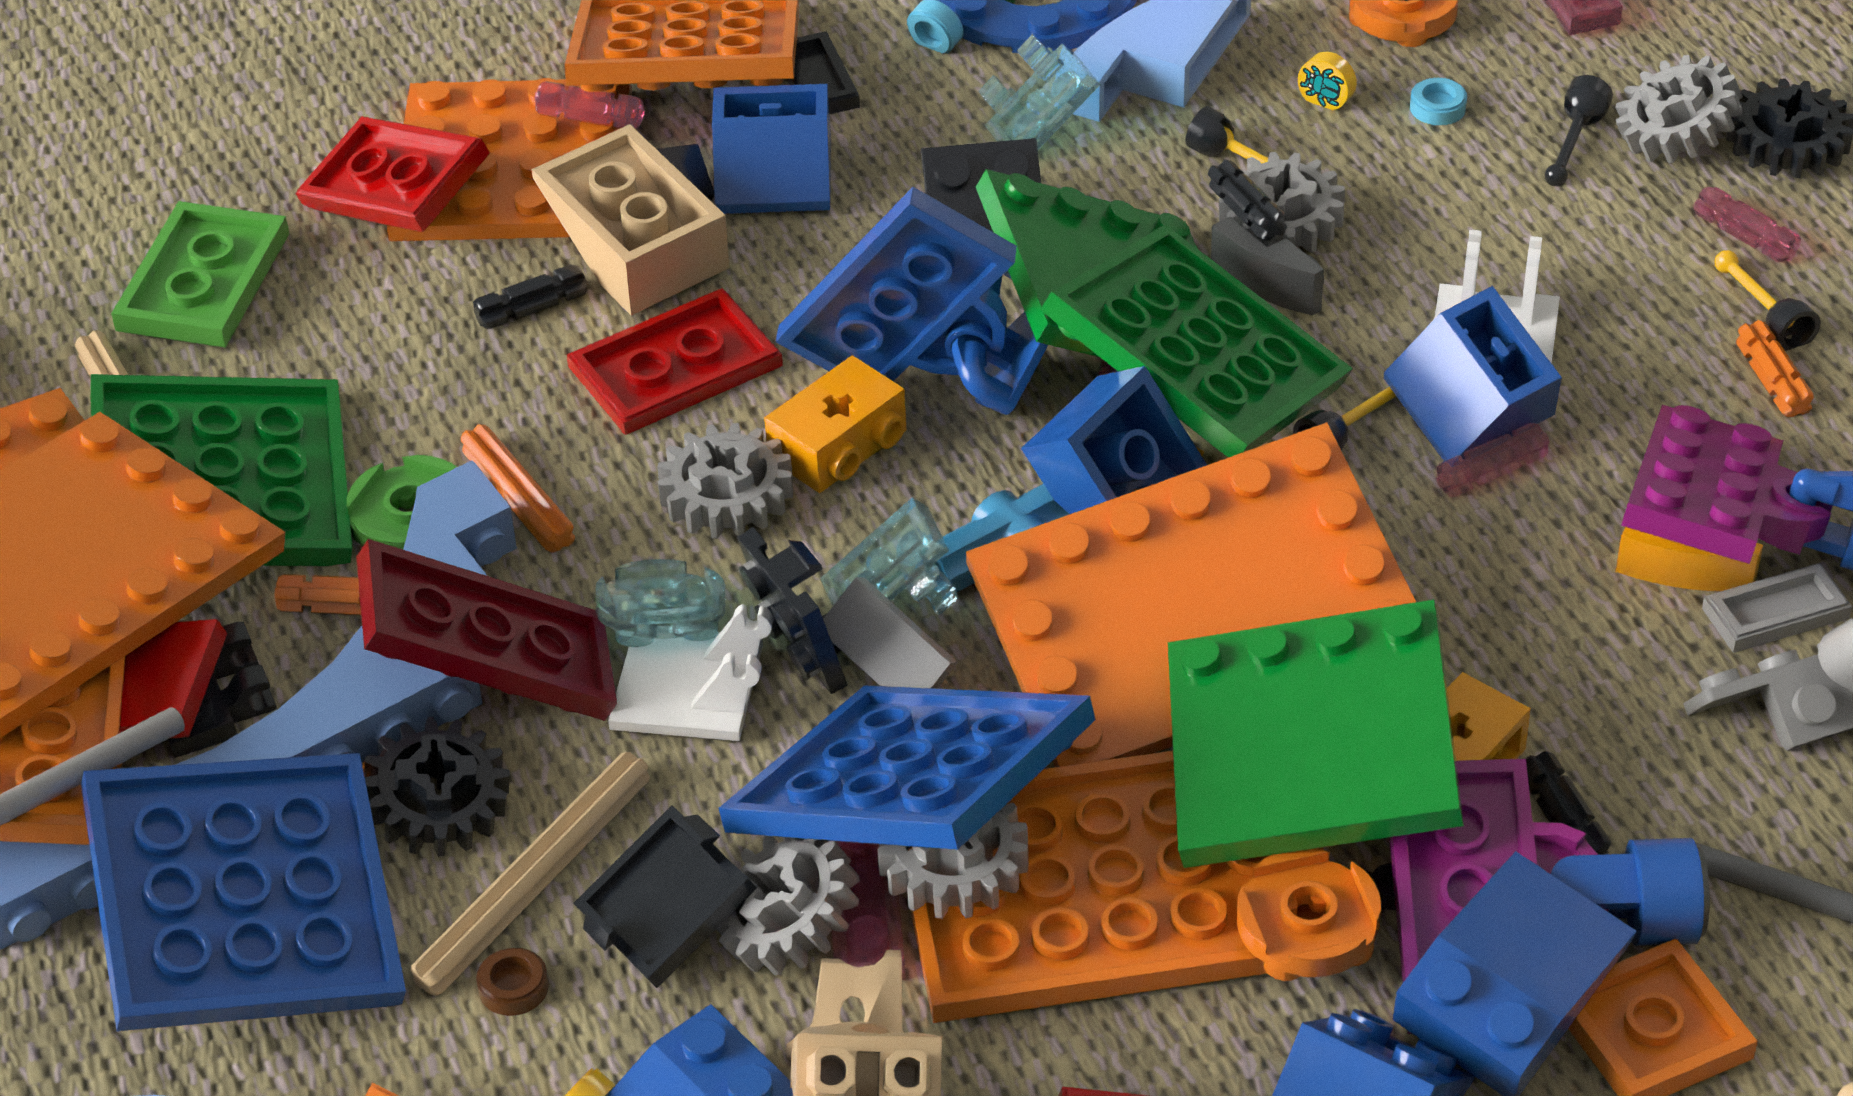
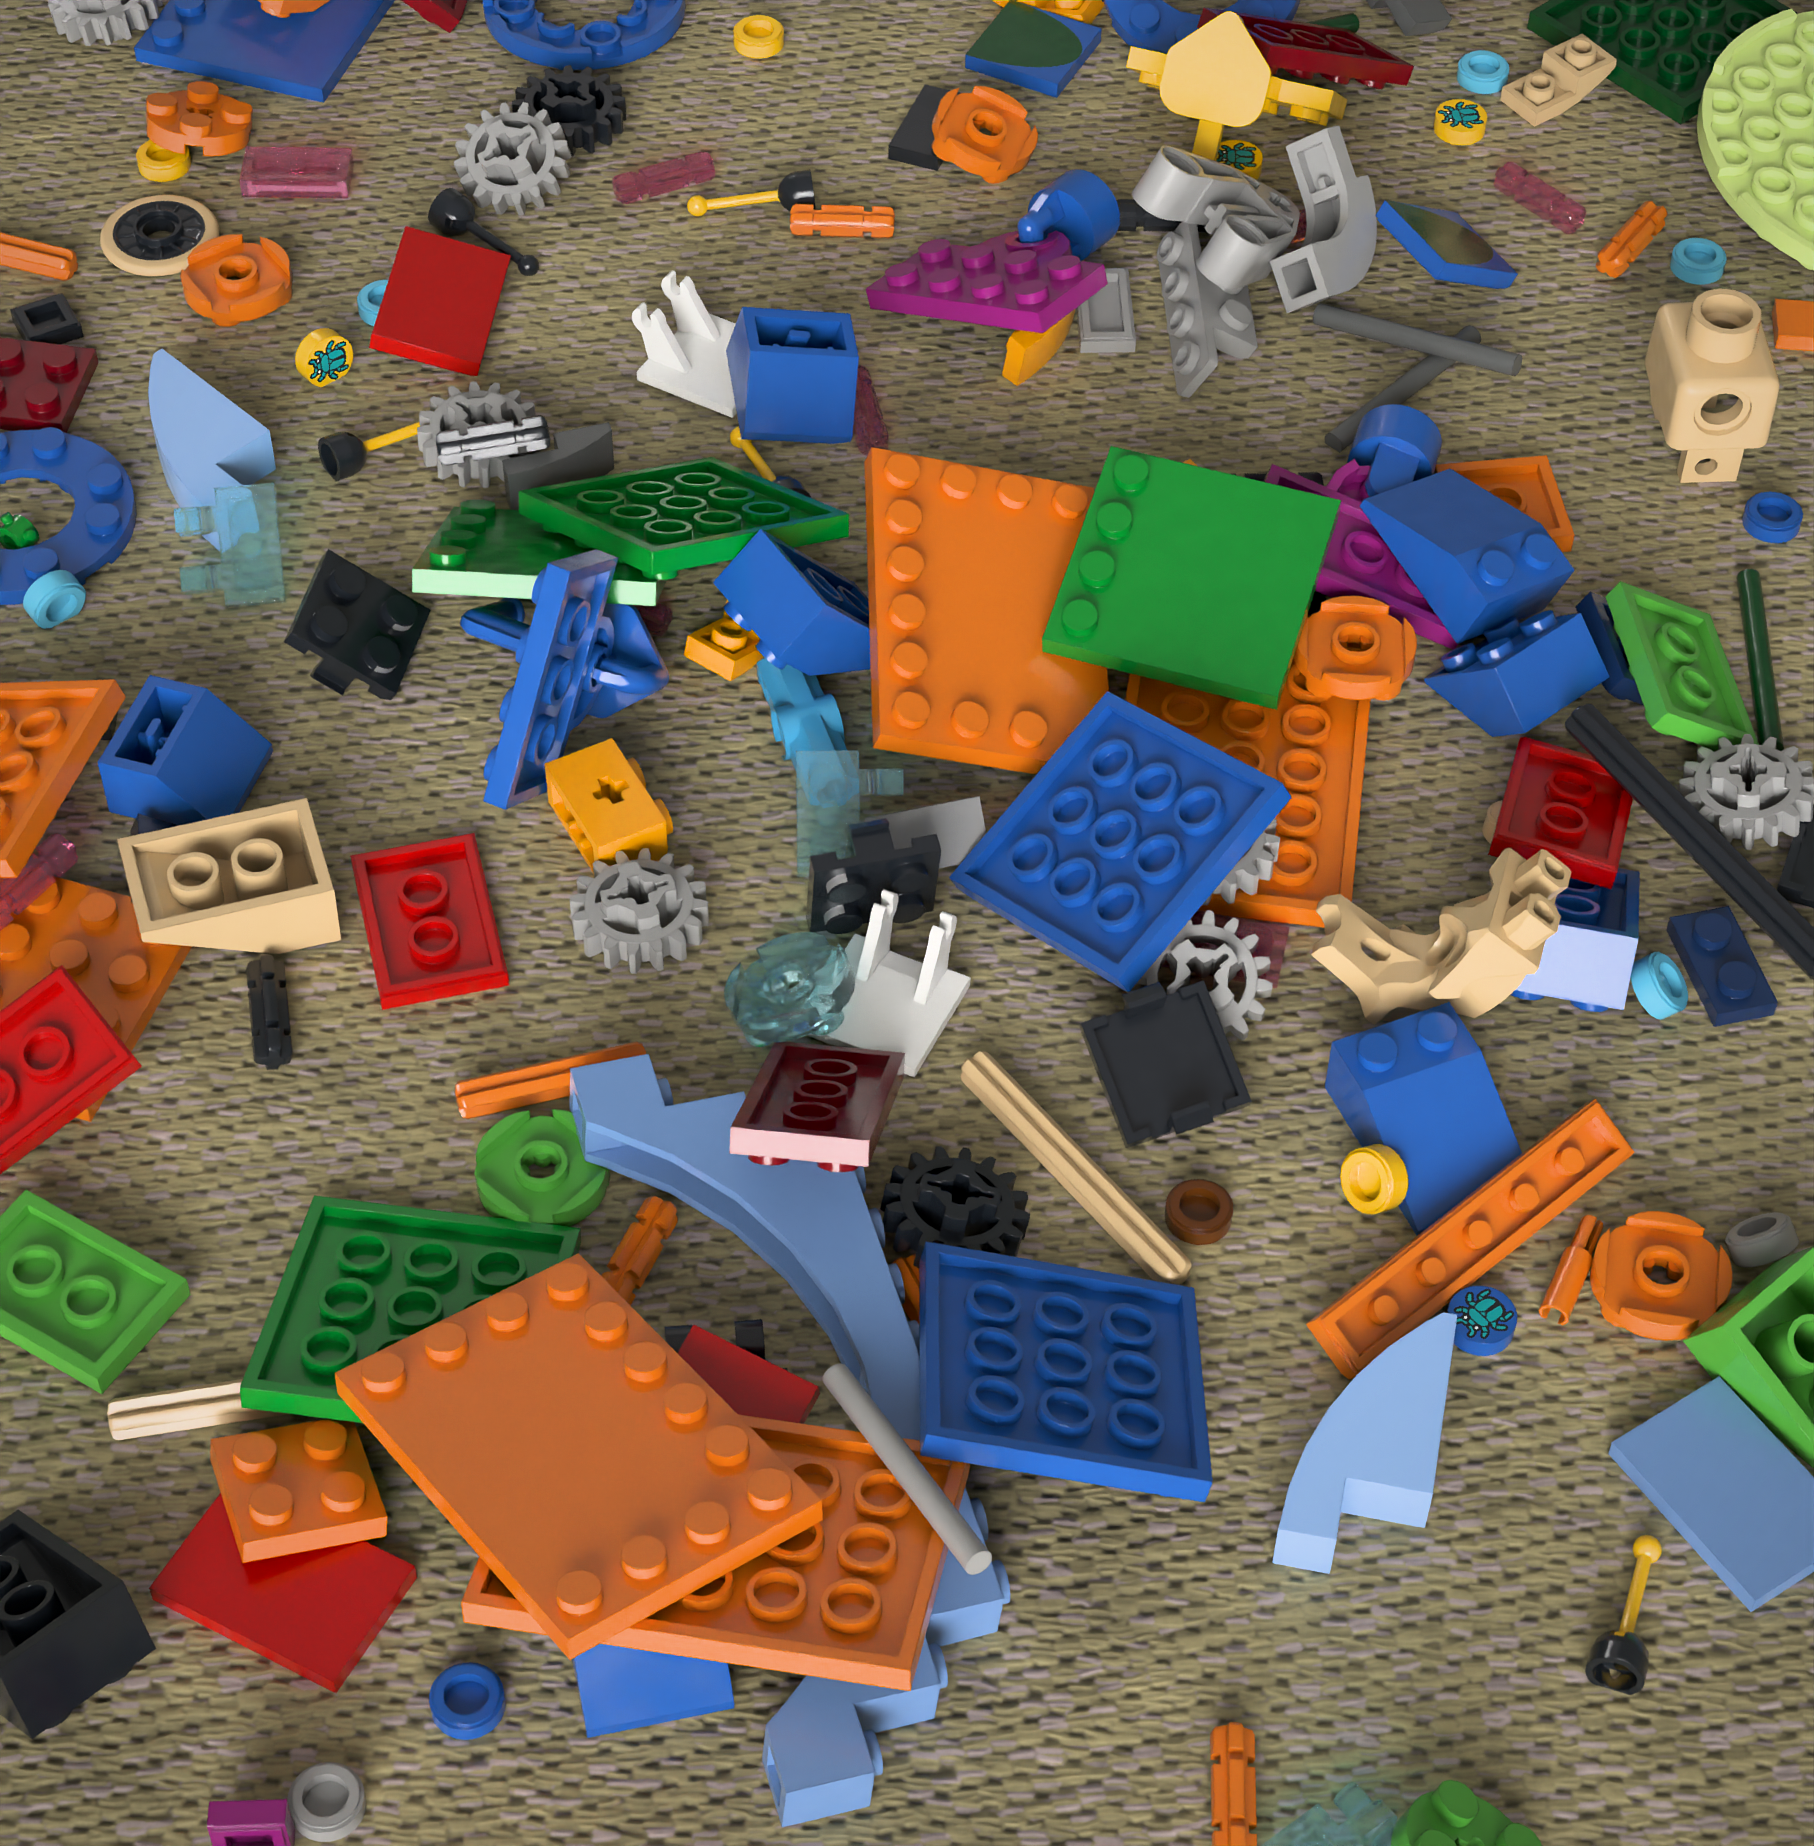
camera: 75 degrees left, 5 degrees up
(1452, 128) = (440, 301): none -> red tile

